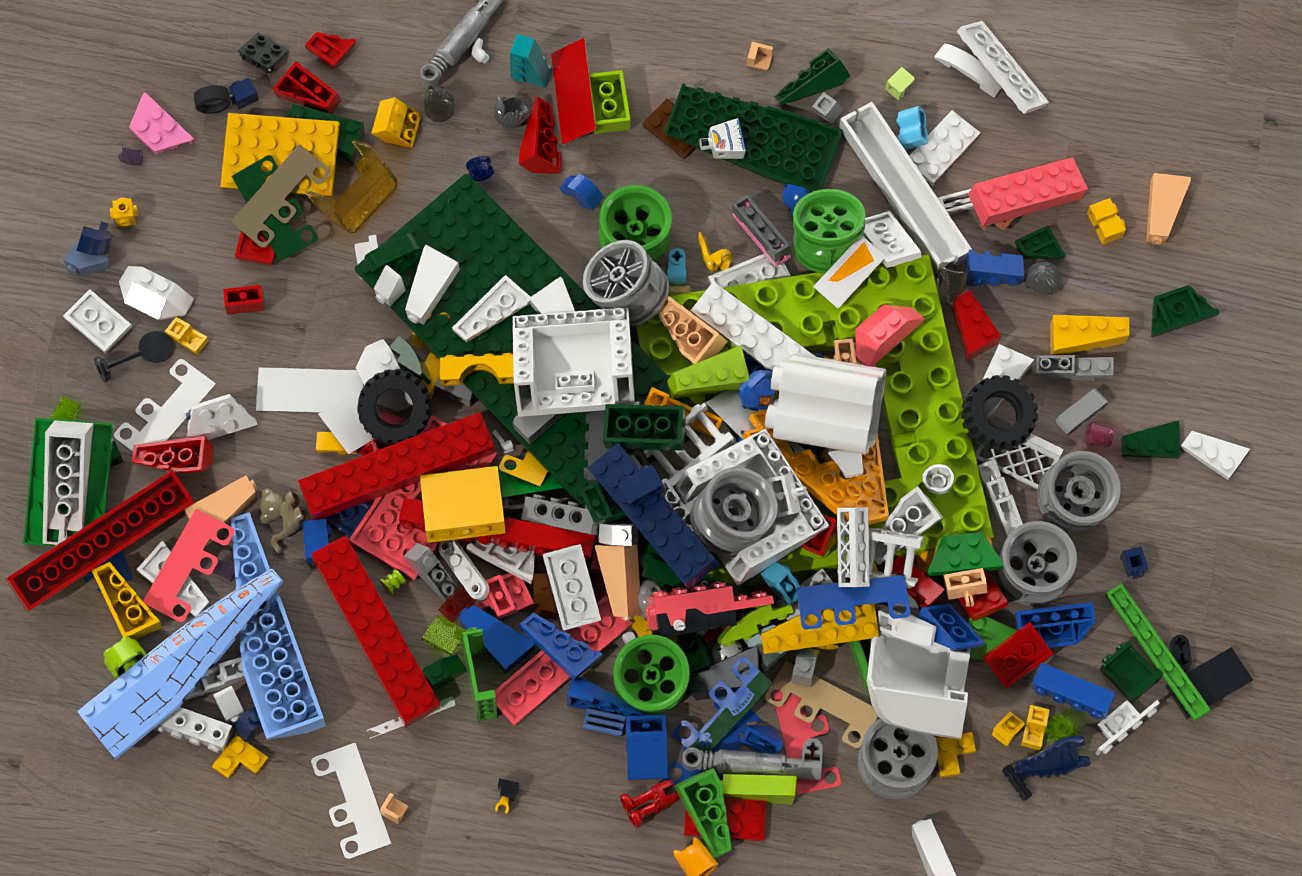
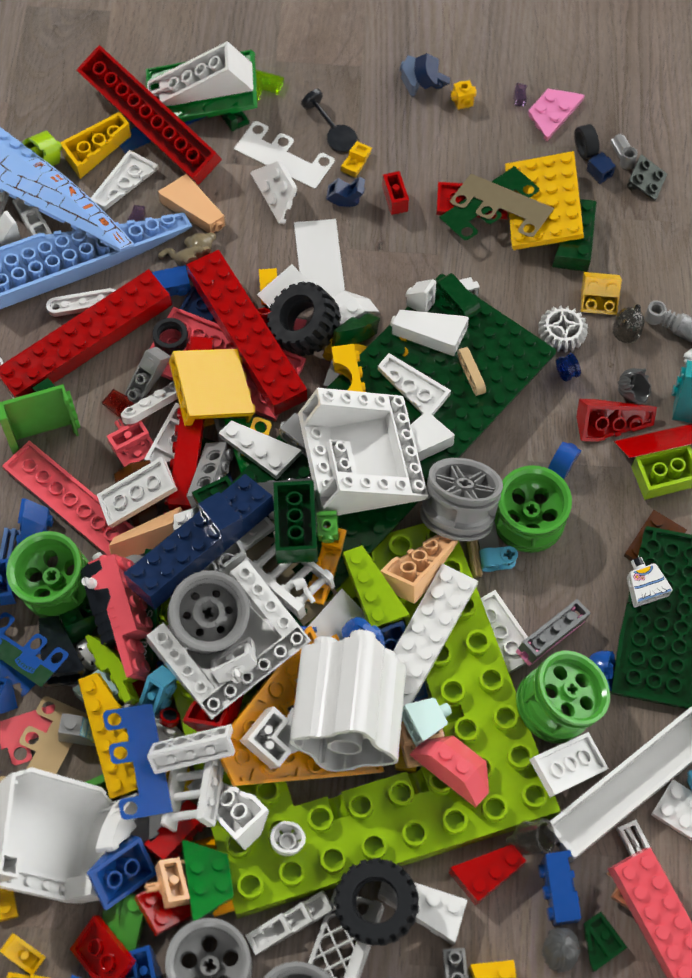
camera: 85 degrees right, 5 degrees down
(97, 321) = (357, 92): white plate -> none
(153, 294) = (389, 129): white wedge -> none
(179, 455) = (236, 164): red wedge -> none
(183, 557) = (138, 179): coral piece -> none
(224, 66) = (624, 151): none -> light grey piece
(234, 348) = (345, 194): none -> dark blue brick
(306, 89) = (617, 213): red wedge -> none
(326, 633) = (75, 302): none -> white plate
(329, 47) = (665, 230): red wing -> none
(364, 196) = (515, 275): clear yellow windscreen -> none
(389, 558) = (170, 323): none -> black tyre
(392, 581) = (136, 347): lime bush -> none
(443, 635) = (89, 397): clear neon green piece -> none
(448, 168) = (568, 324): none -> white gear
(484, 253) = (471, 371): none -> tan beam
(501, 642) = (87, 440): blue slope -> none
(544, 460) = (261, 449): none -> white wing
(565, 651) = (76, 498): blue wing -> none
(644, 394) = (326, 518): none -> bright green brick
(705, 432) = (300, 583): none -> white hand
(716, 259) = (516, 589): yellow hair -> none
(806, 577) = (169, 717): none -> red tile
(842, 346) = (424, 719): none -> light aqua torso
(849, 271) = (518, 721): white sticker -> none
(851, 481) = (263, 740): none -> white brick

